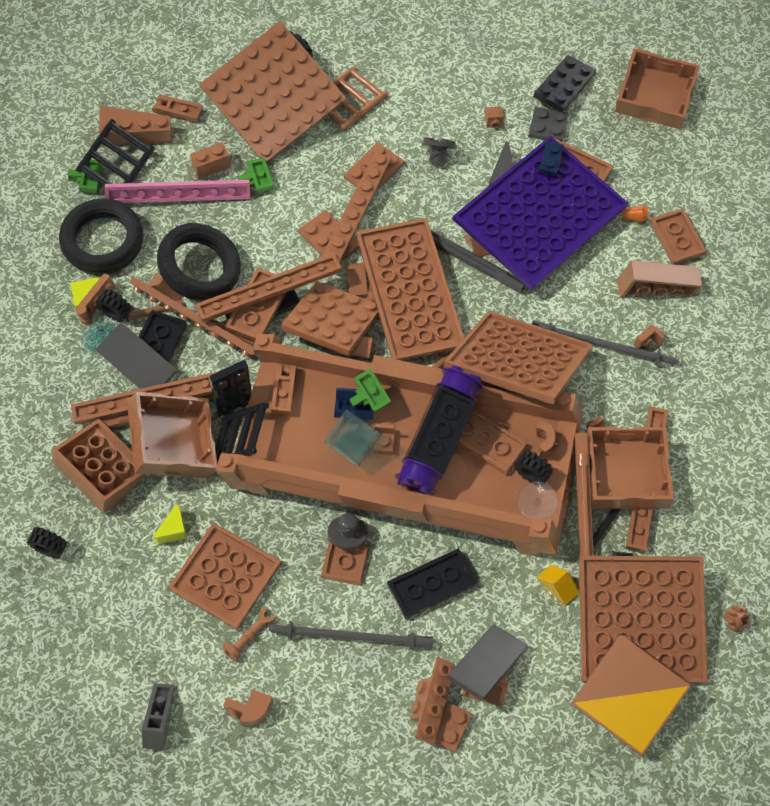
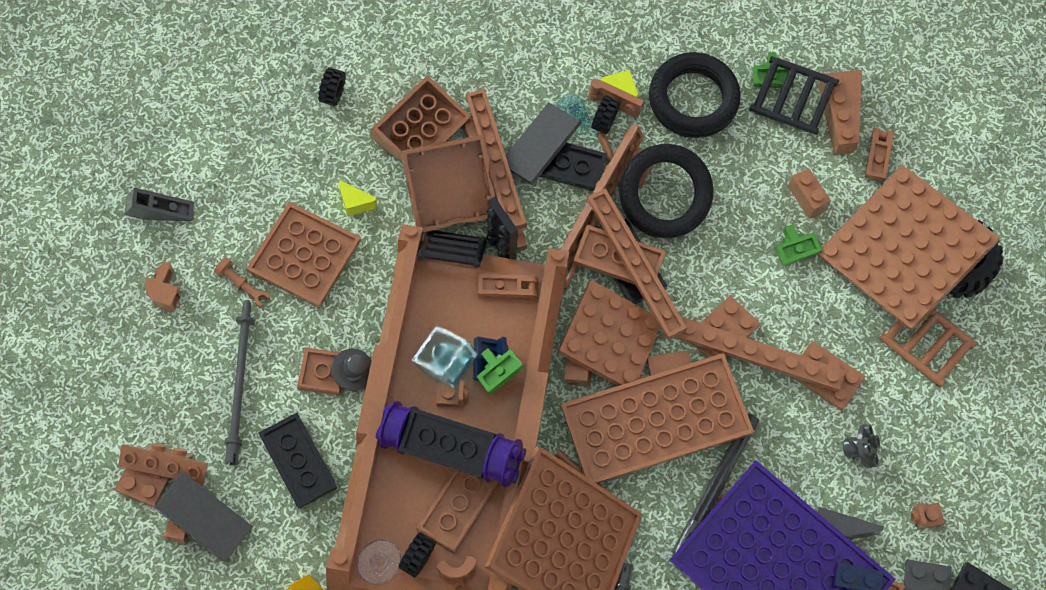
camera: 85 degrees right, 5 degrees up
(178, 191) = (762, 165): bright pink plate -> none

